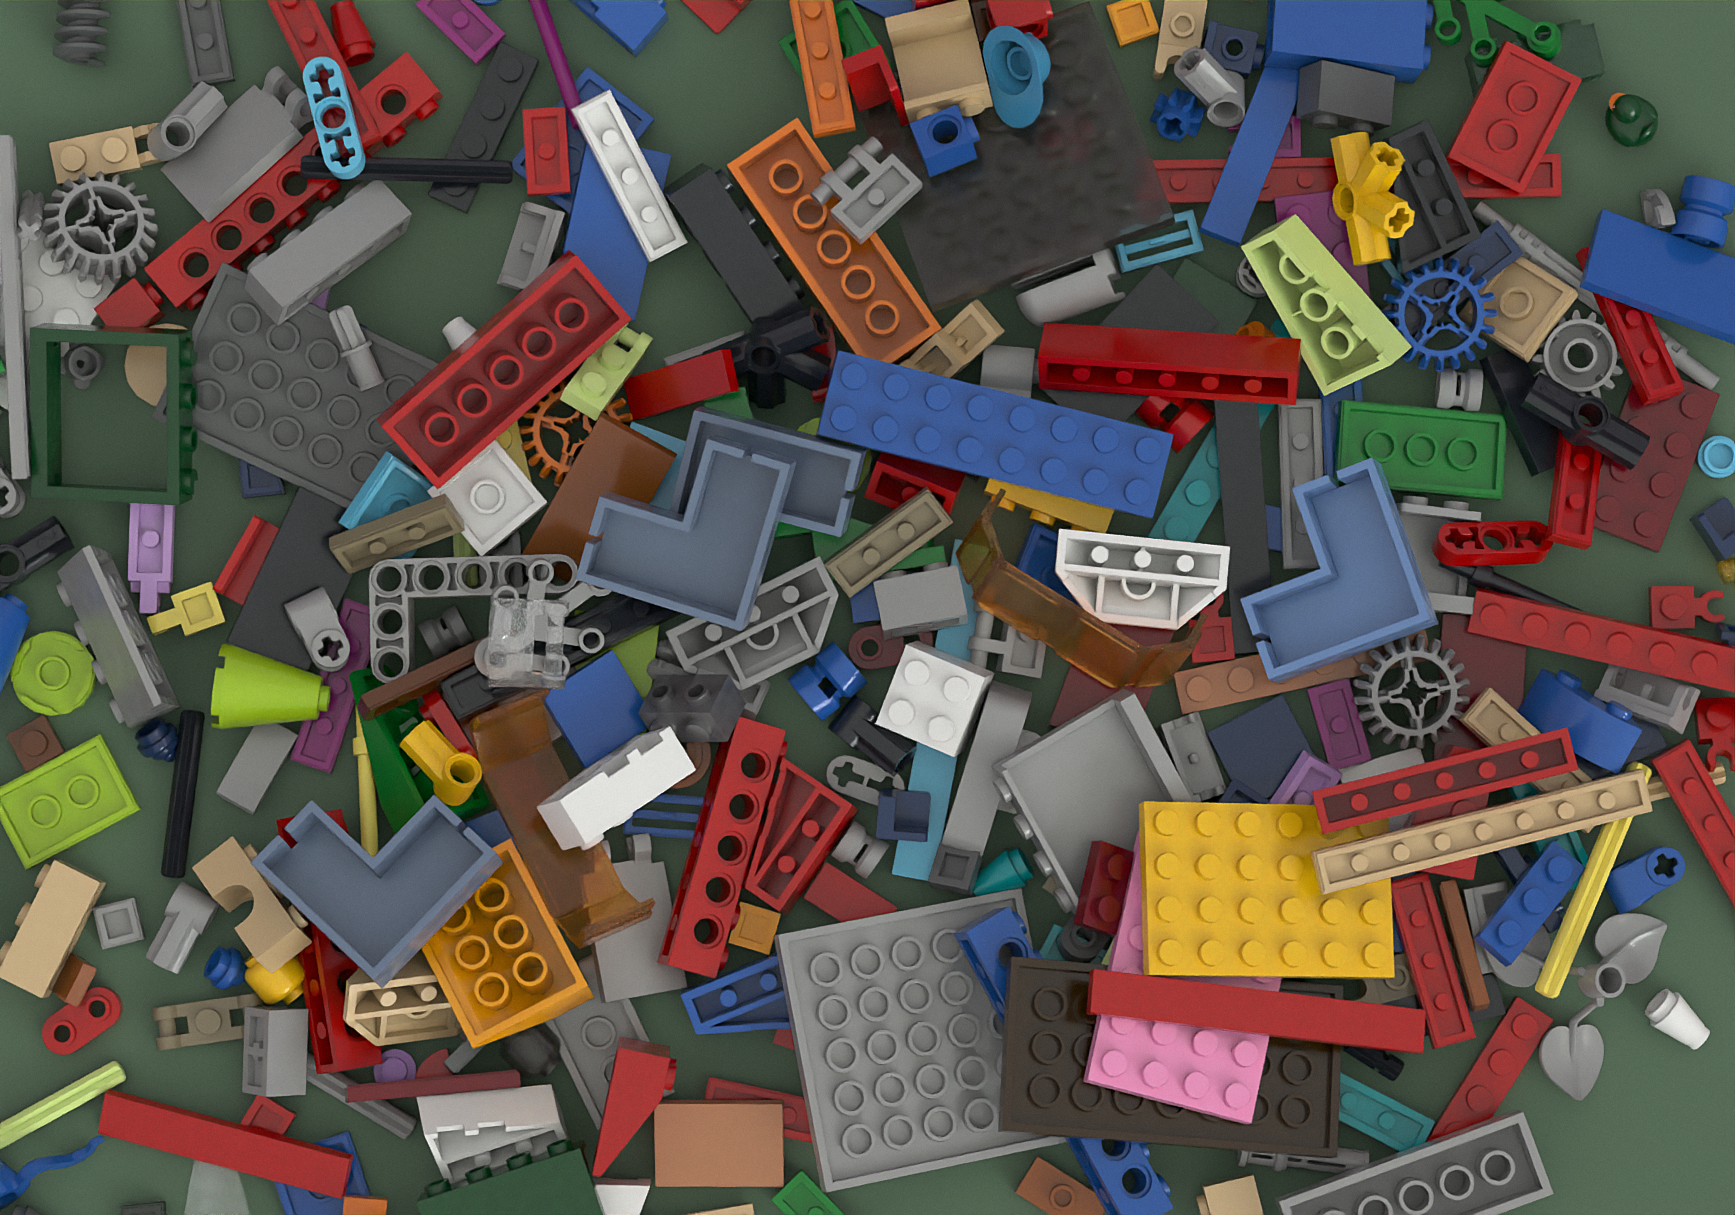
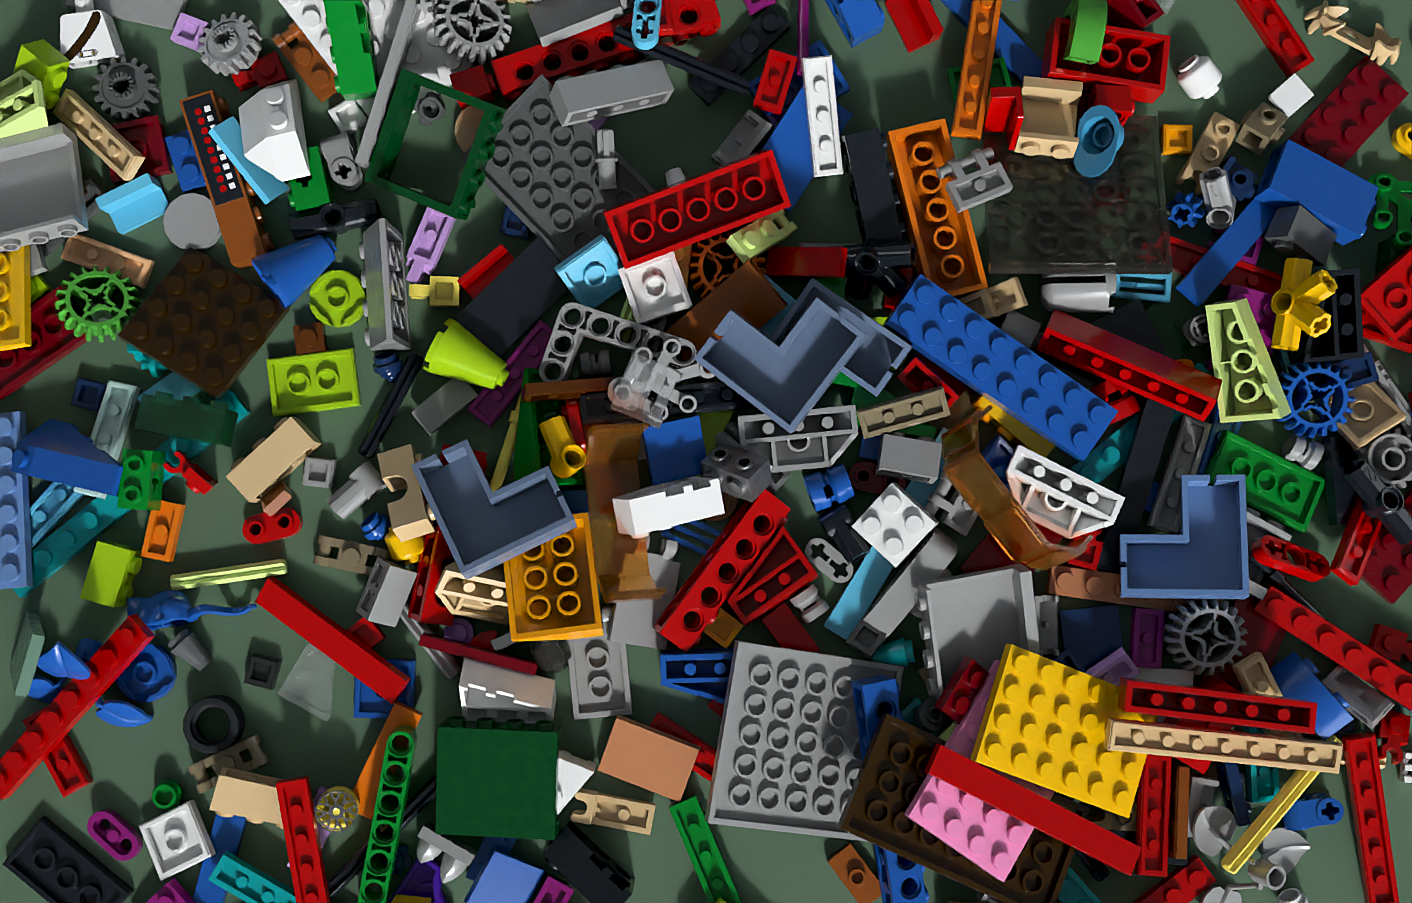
camera: 20 degrees right, 0 degrees up
(317, 623) = (516, 328): light grey piece -> none
(396, 534) = (588, 288): dark tan tile -> none
(634, 1091) = (606, 708): red slope -> none
(903, 815) = (845, 591): dark blue panel -> none
(939, 156) = (1032, 176): blue brick -> none
(1529, 903) = (1235, 804): blue plate -> none

